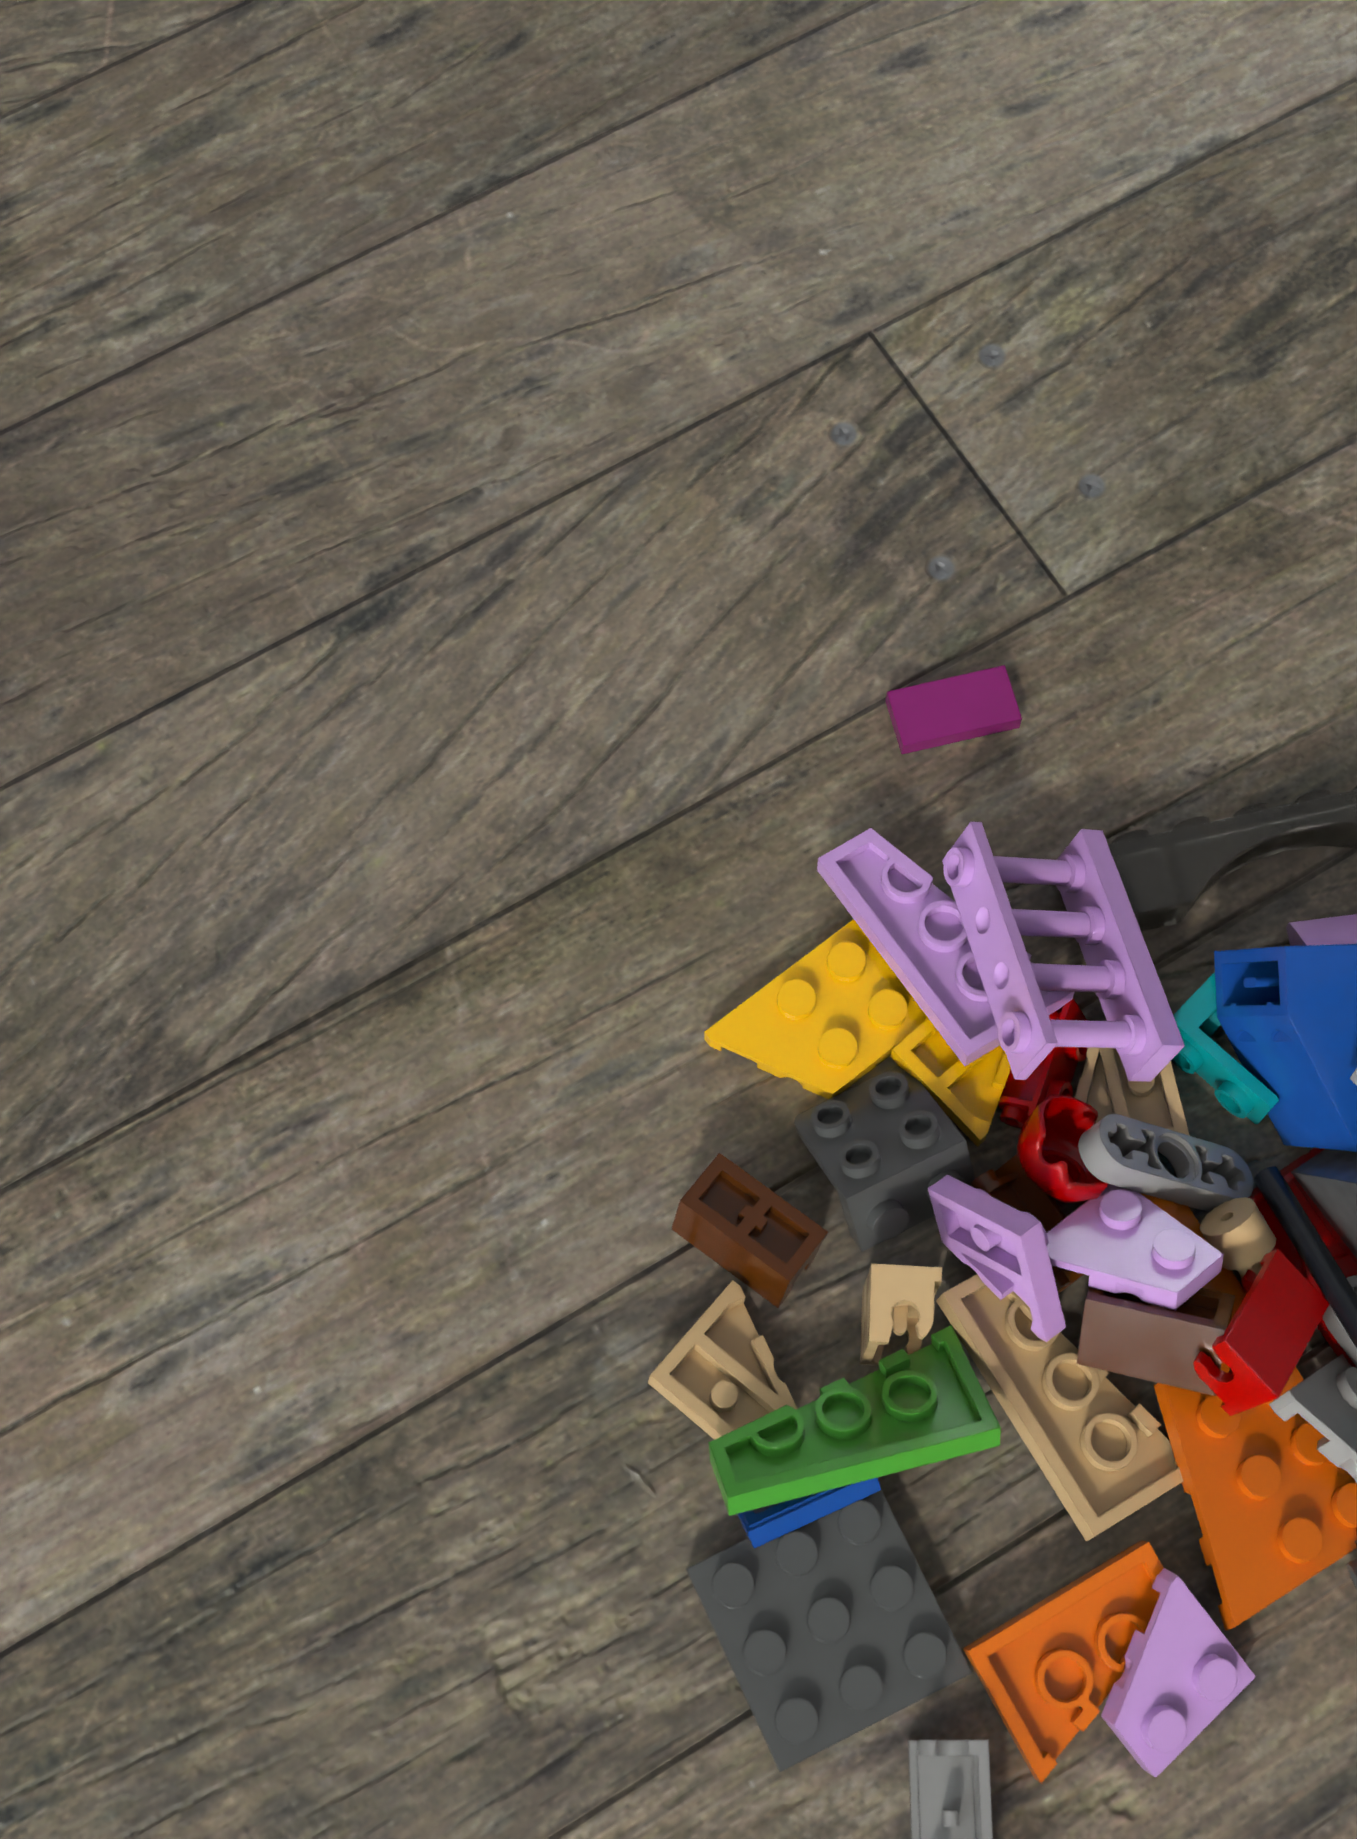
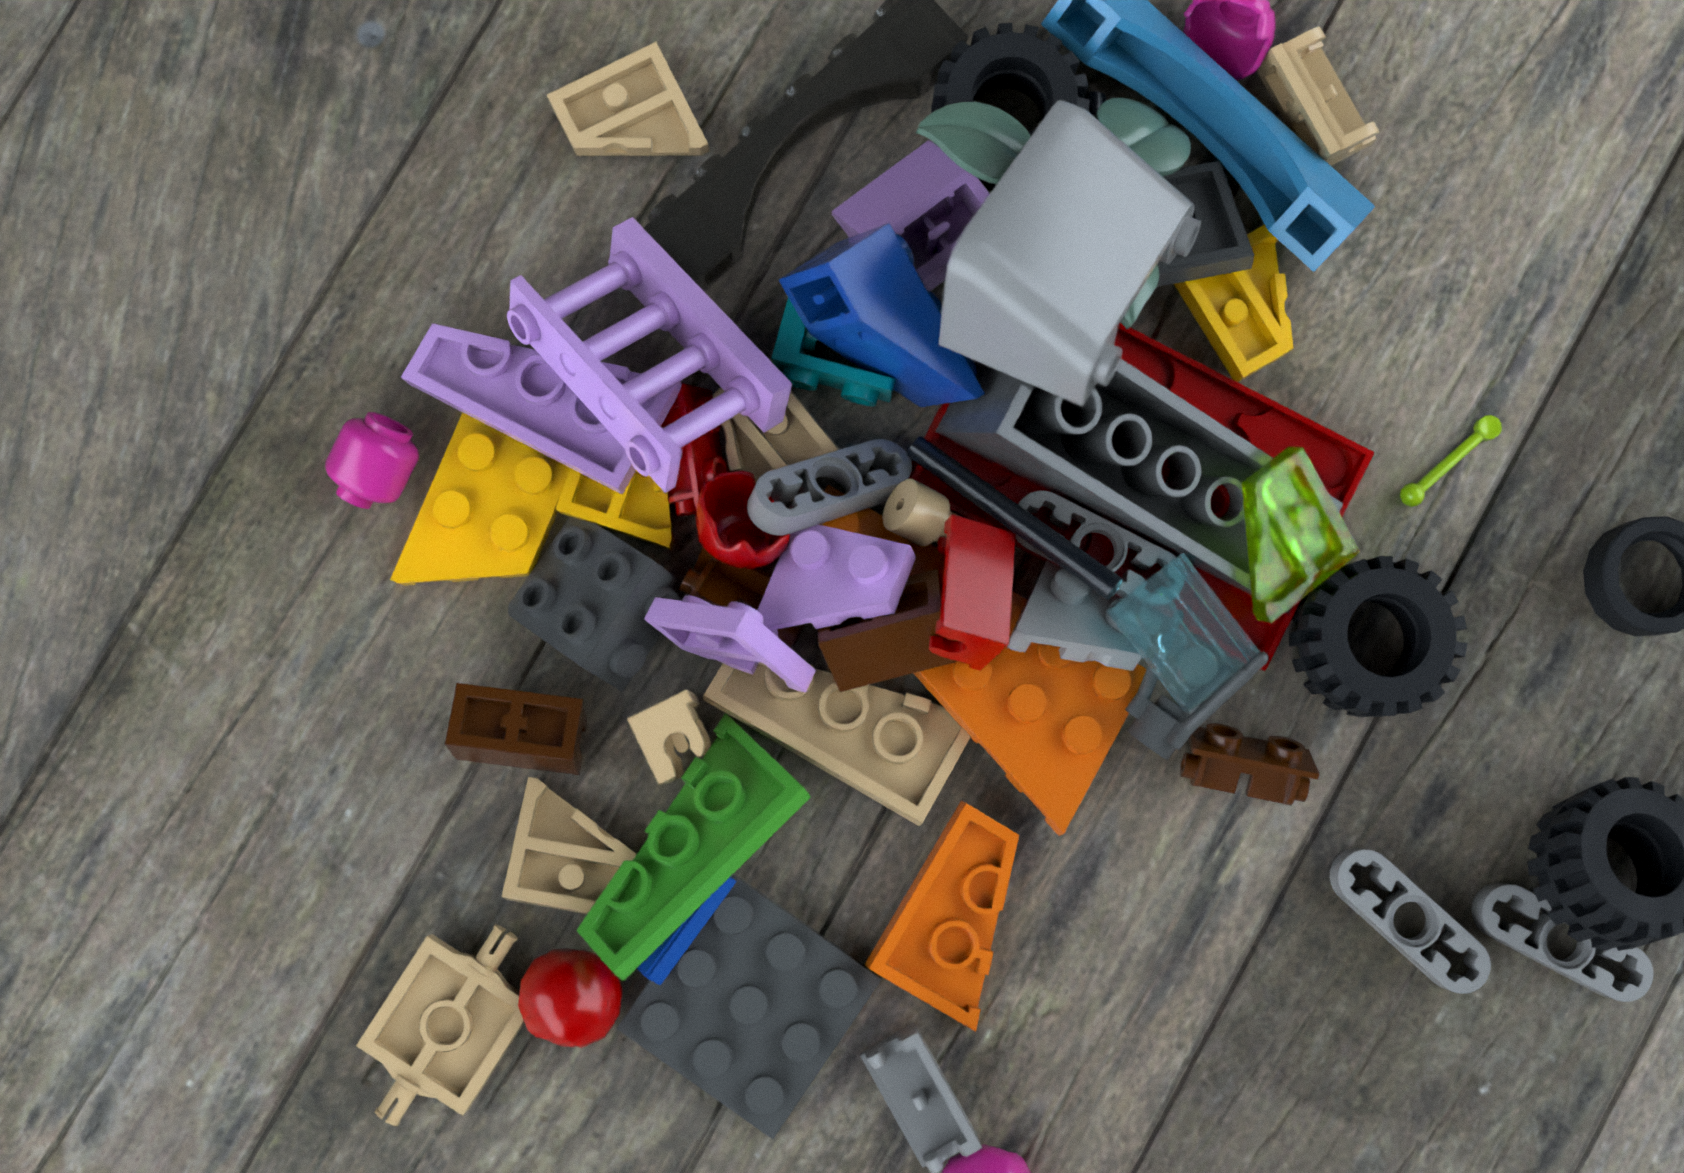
camera: 35 degrees left, 15 degrees up
(528, 1470) = (445, 1025): none -> tan plate
(660, 1511) = (569, 997): none -> red hair
(748, 918) = (372, 460): none -> dark pink head
(953, 709) = (450, 167): magenta tile -> none
(1143, 742) = (629, 110): none -> tan wing
(1173, 1678) = (1036, 896): lavender wing -> none

